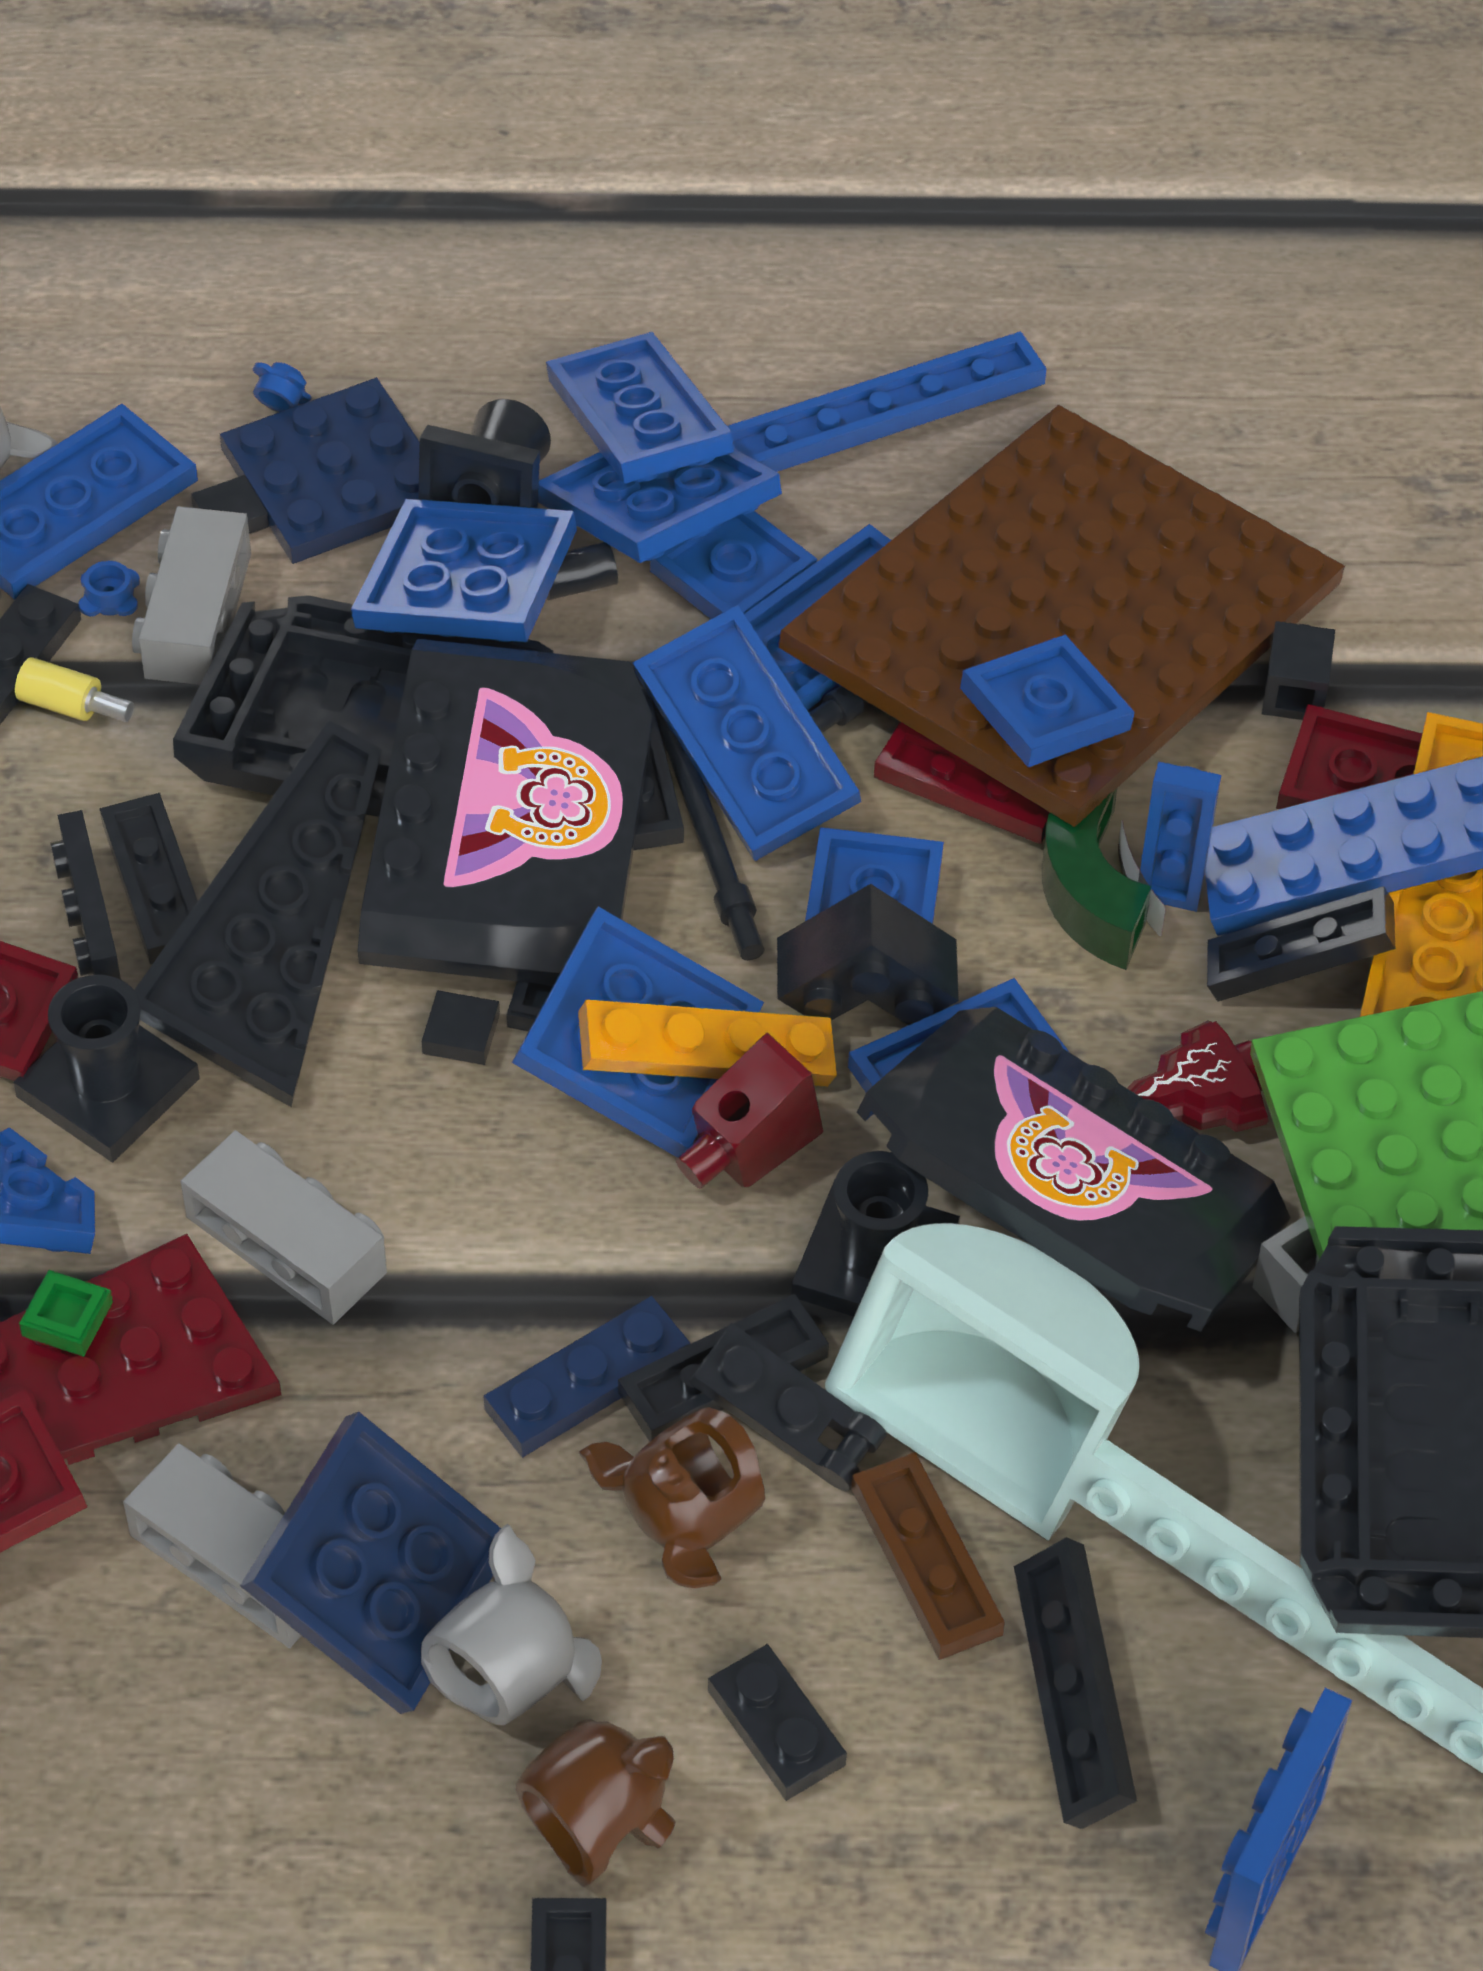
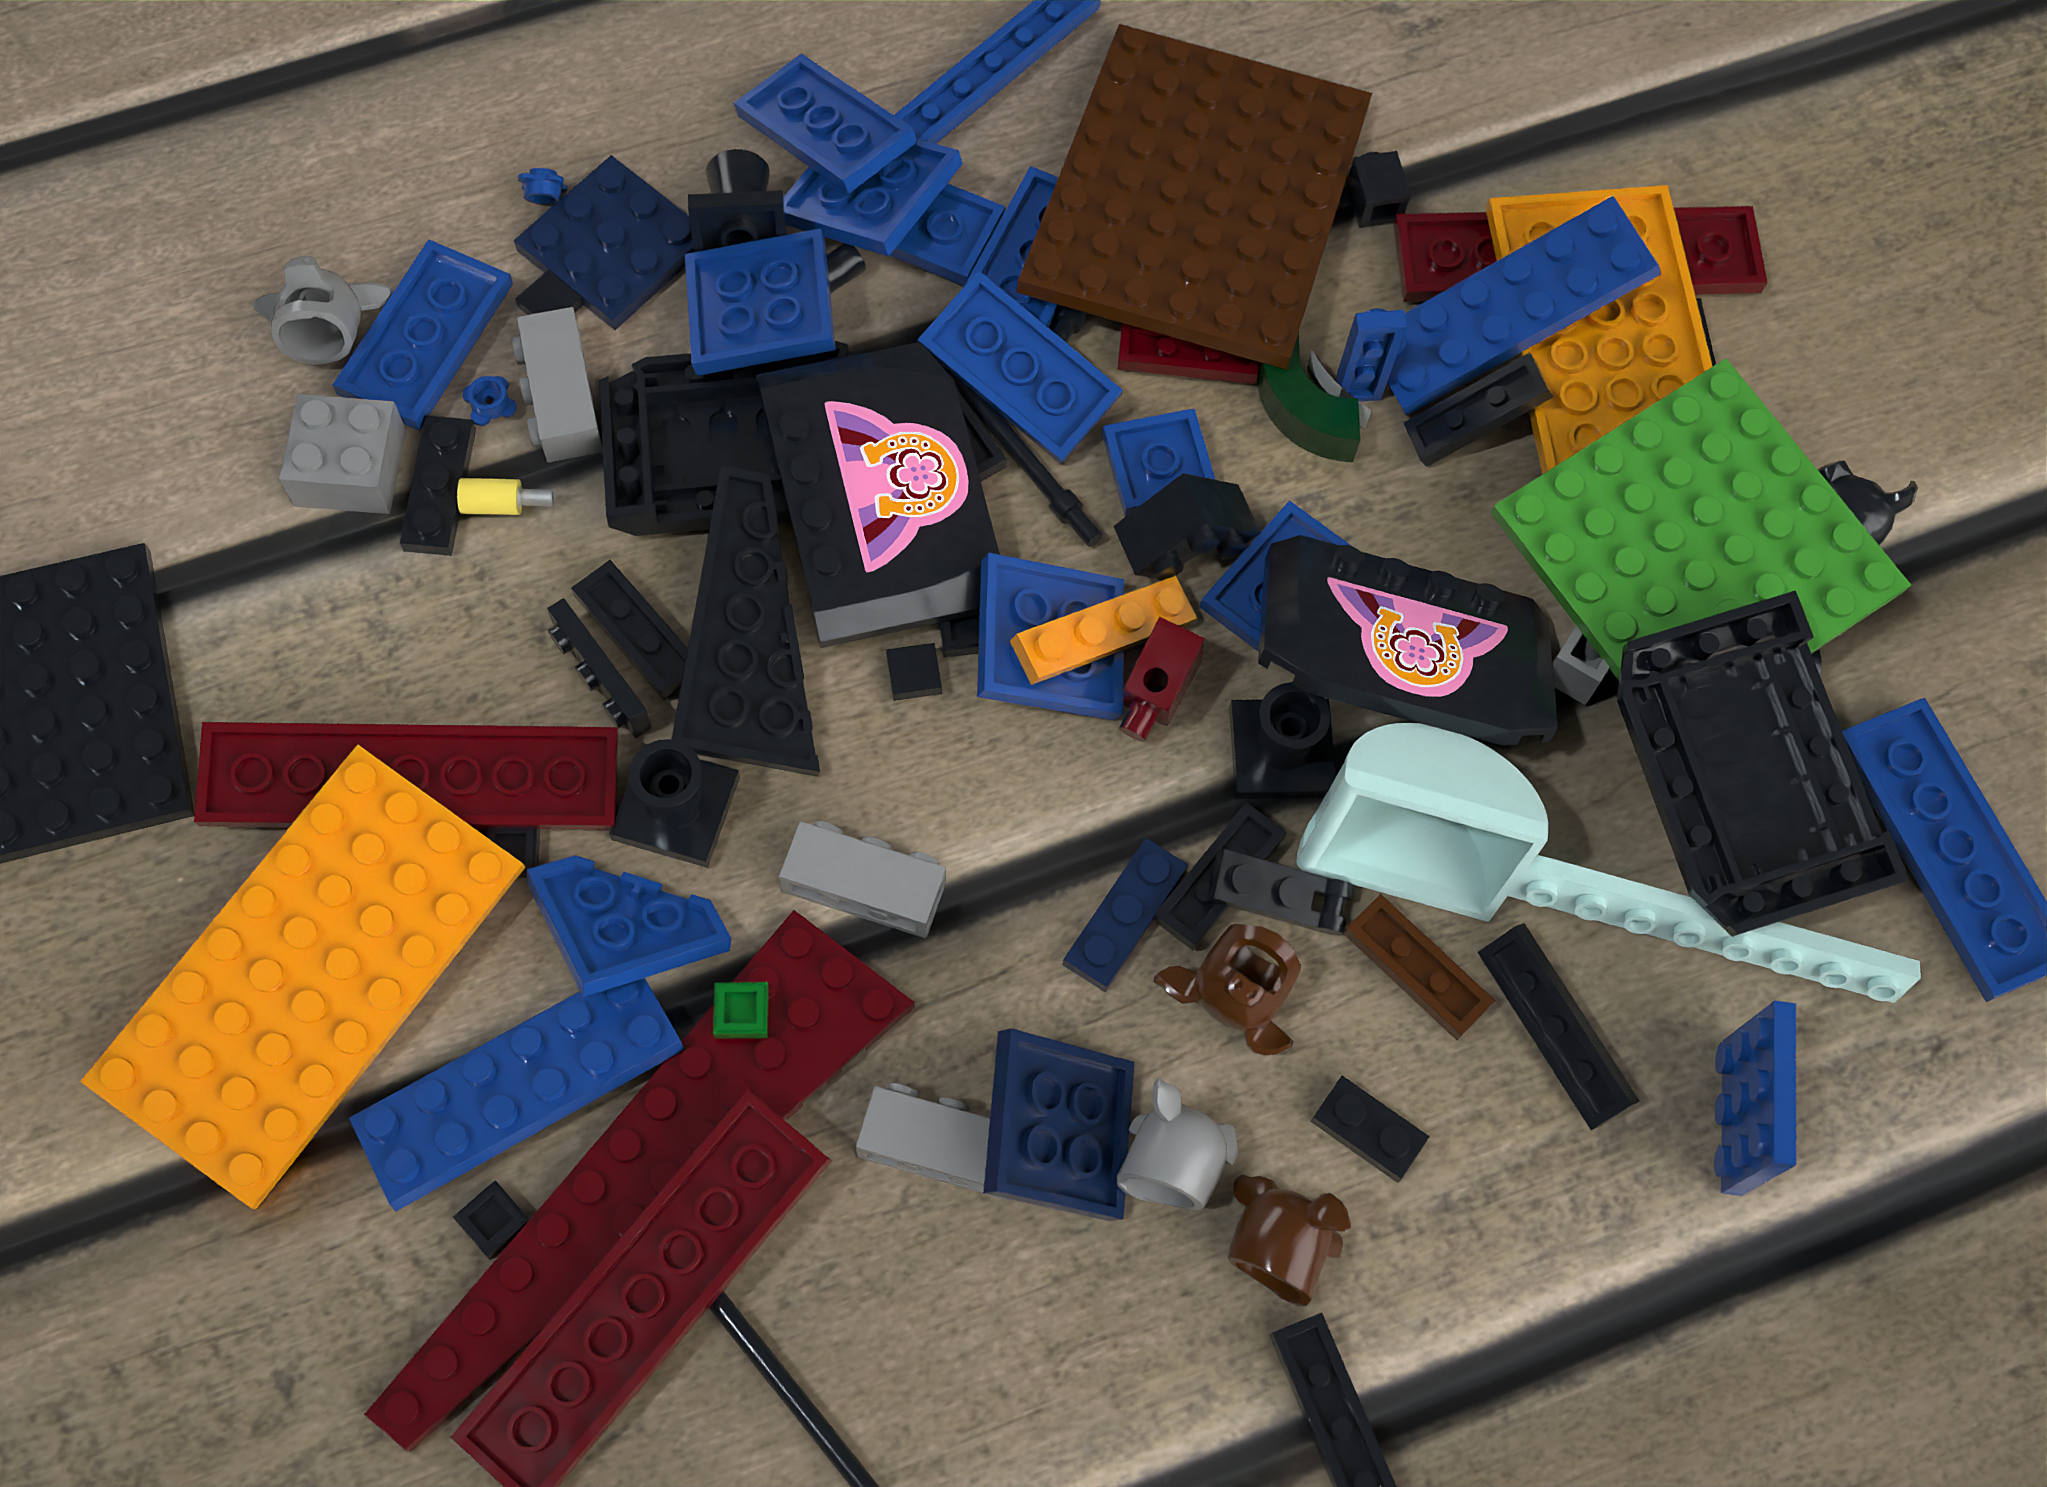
camera: 25 degrees left, 15 degrees up
(1046, 700) = (1237, 280): blue plate -> none
(1207, 1081) = (1451, 533): dark red rock -> none

